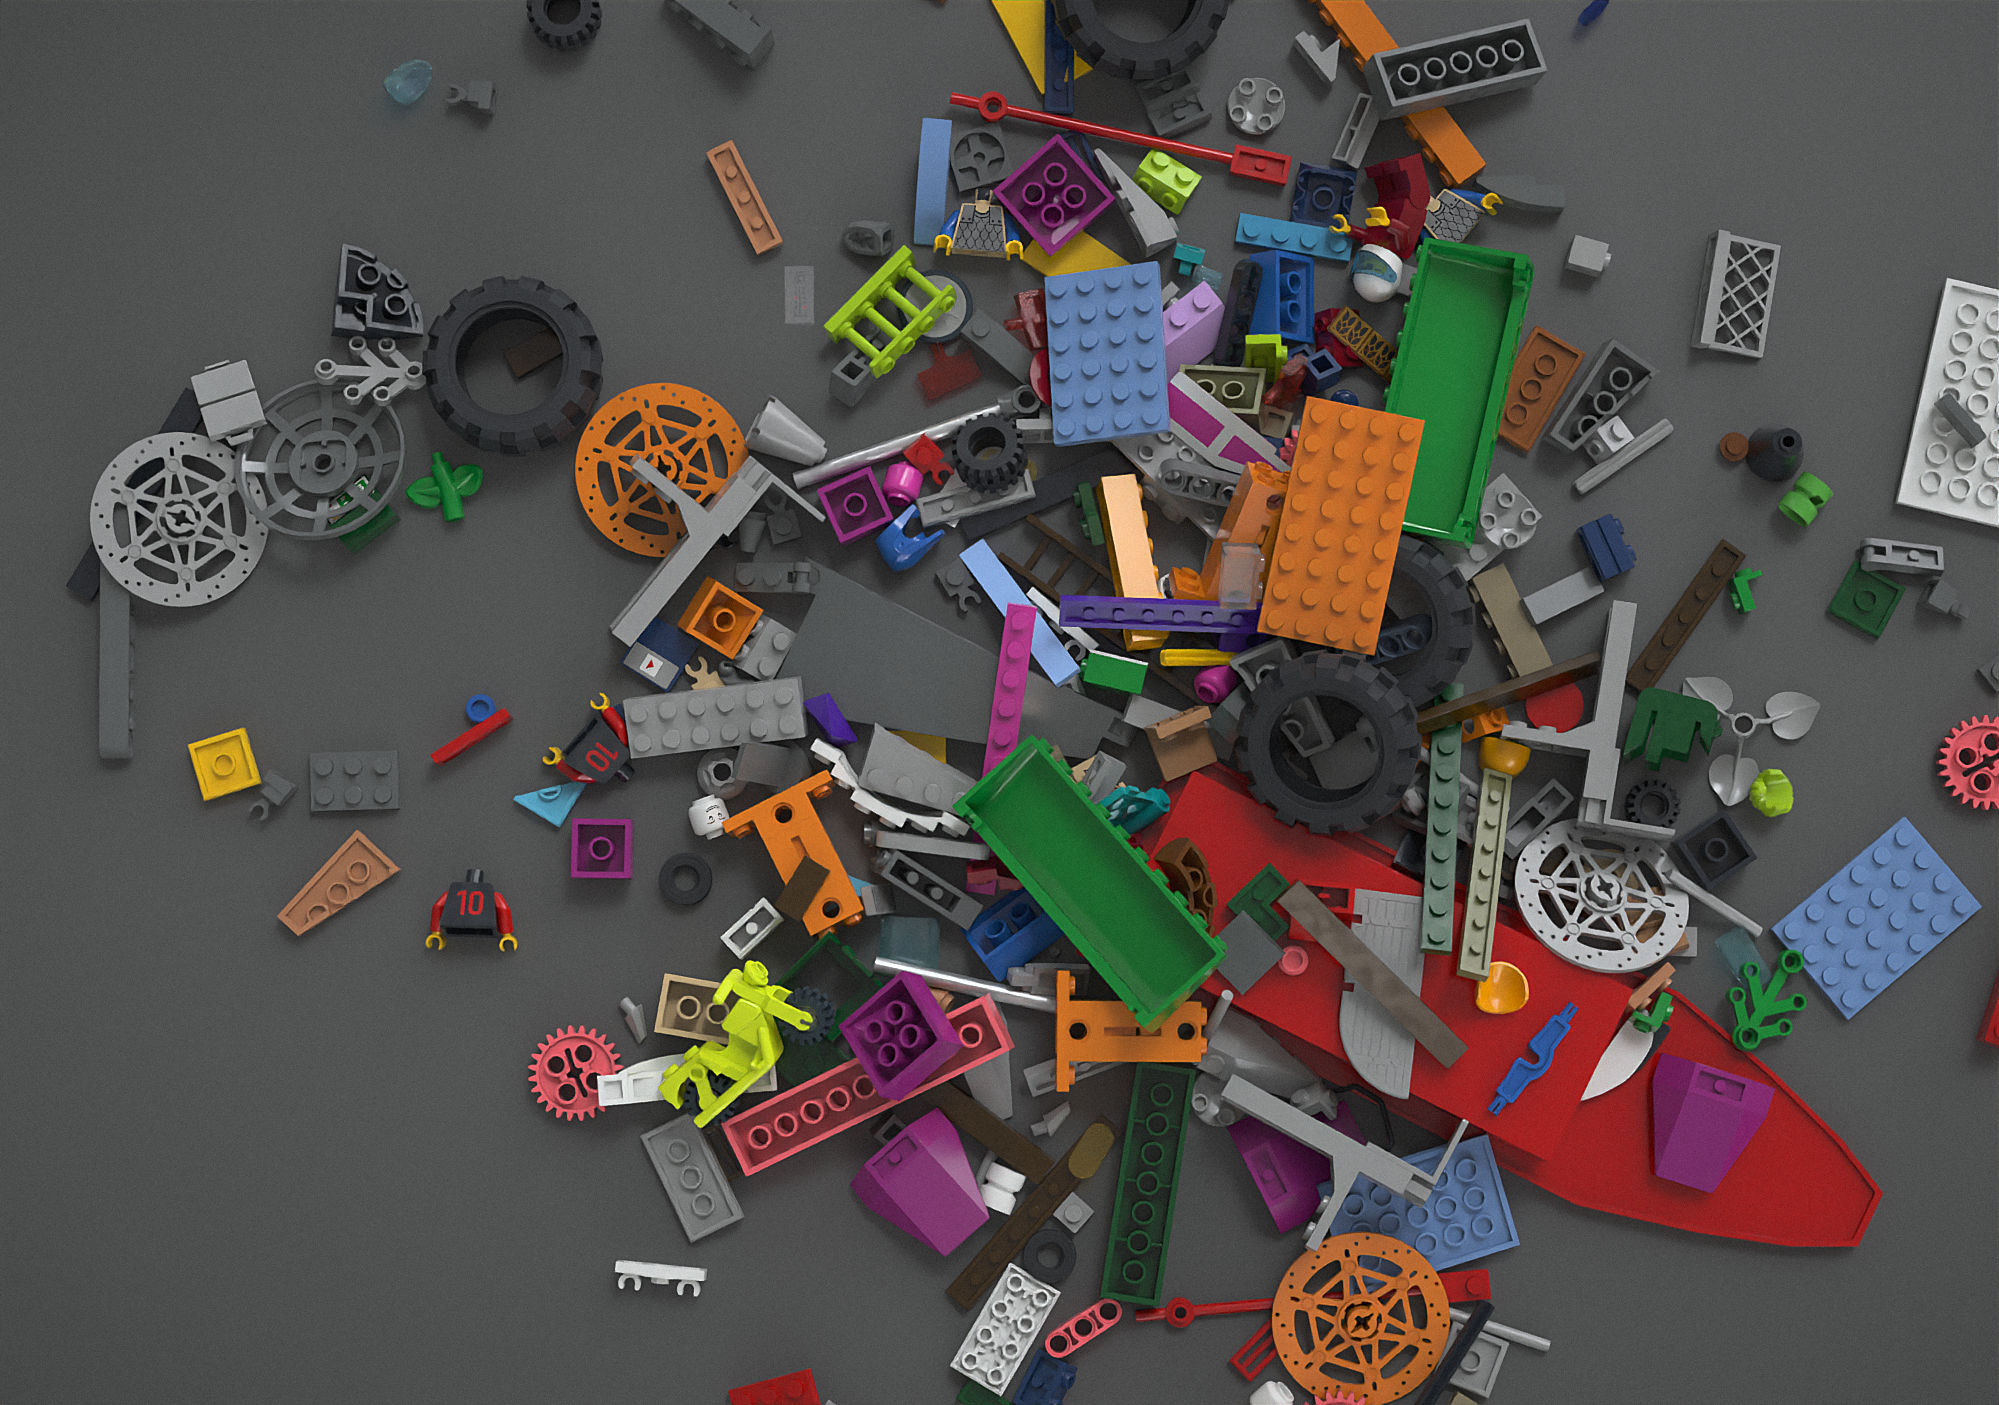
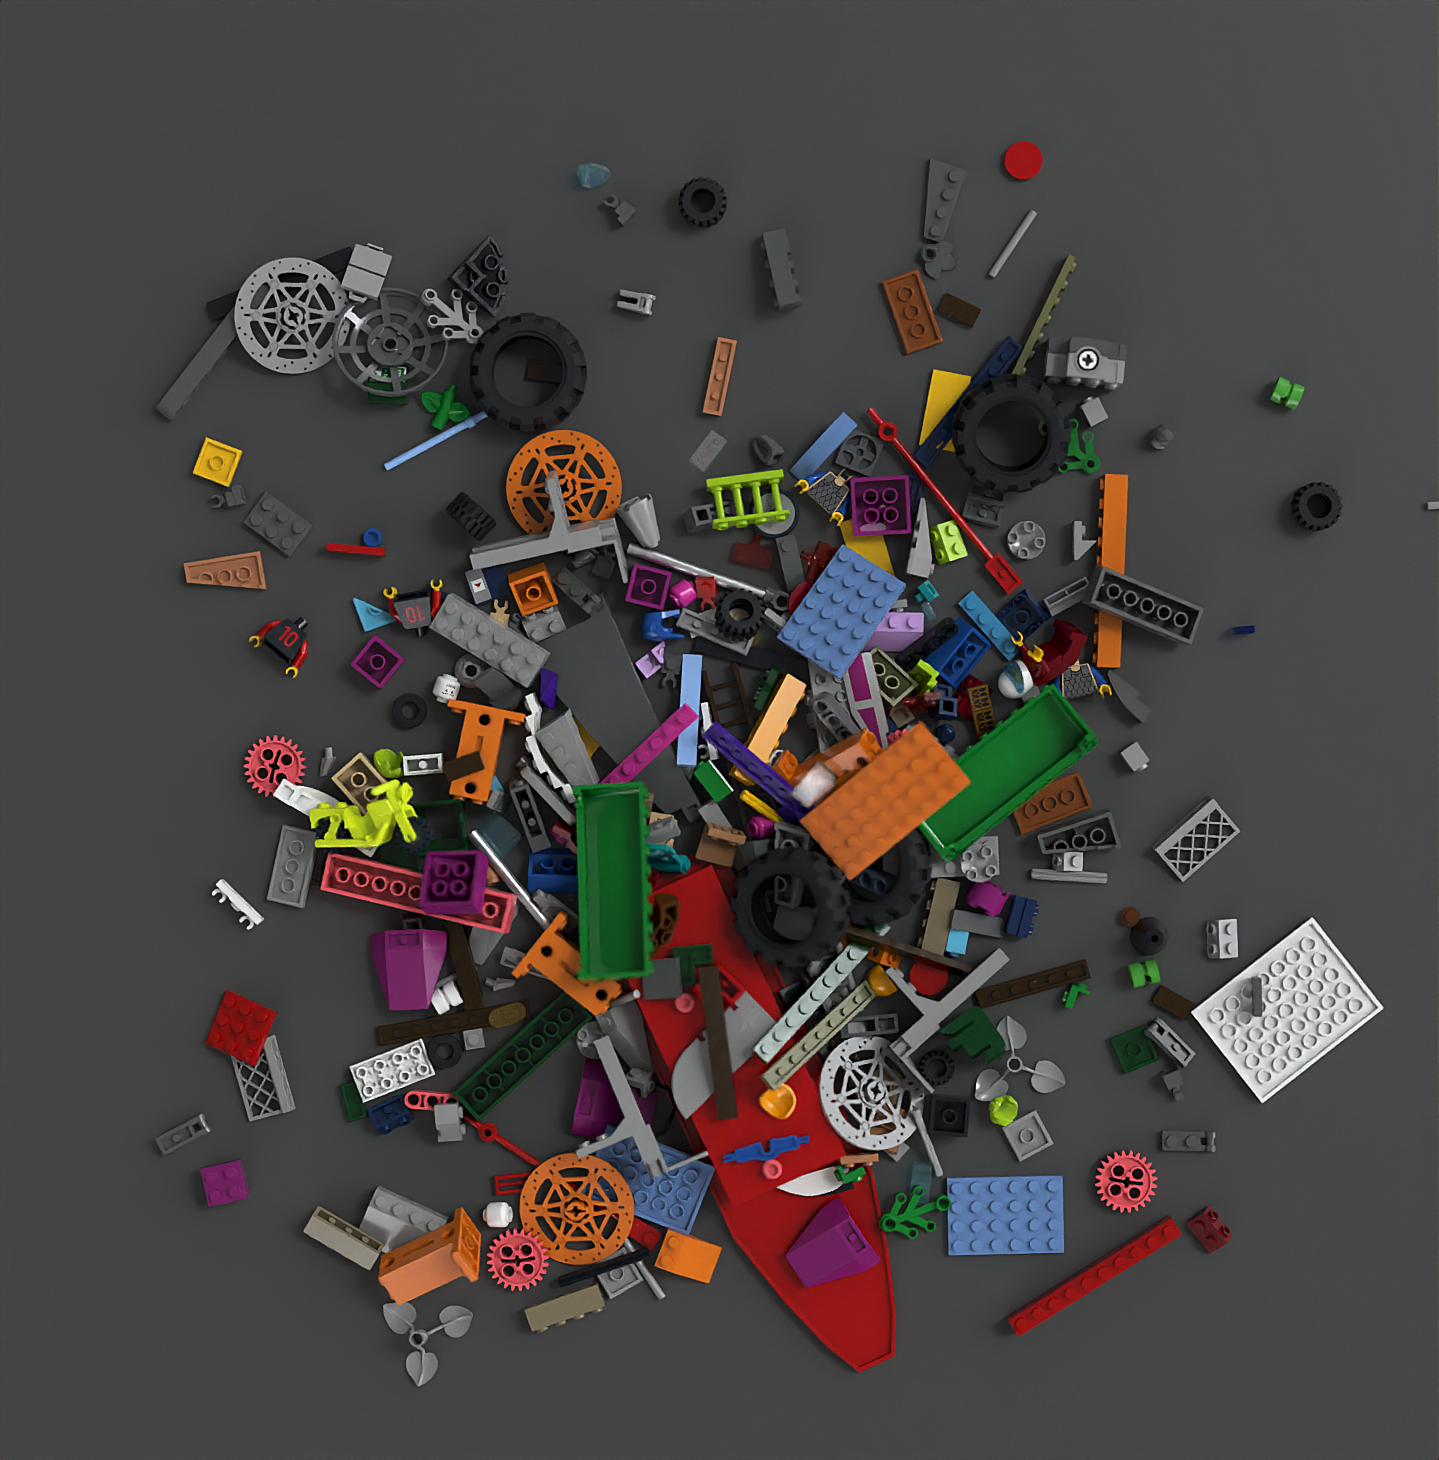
camera: 35 degrees right, 5 degrees up
(489, 482) = (469, 422): none -> light blue bar
(577, 587) = (471, 516): none -> black tyre
(579, 179) = (639, 306): none -> light grey piece
(710, 961) = (388, 763): none -> lime hair
(928, 593) = (651, 661): none -> lavender slope
(1124, 1336) = (449, 1122): none -> light grey brick
(1538, 1270) = (687, 1256): none -> orange slope
(1547, 553) = (988, 896): none -> magenta brick
(1556, 637) = (956, 942): none -> medium azure brick
(1559, 1078) = (772, 1169): none -> coral plate
(1824, 802) = (1027, 1135): none -> light grey tile
(1862, 387) = (1222, 938): none -> light grey bracket
(1866, 508) = (1173, 1002): none -> dark brown tile

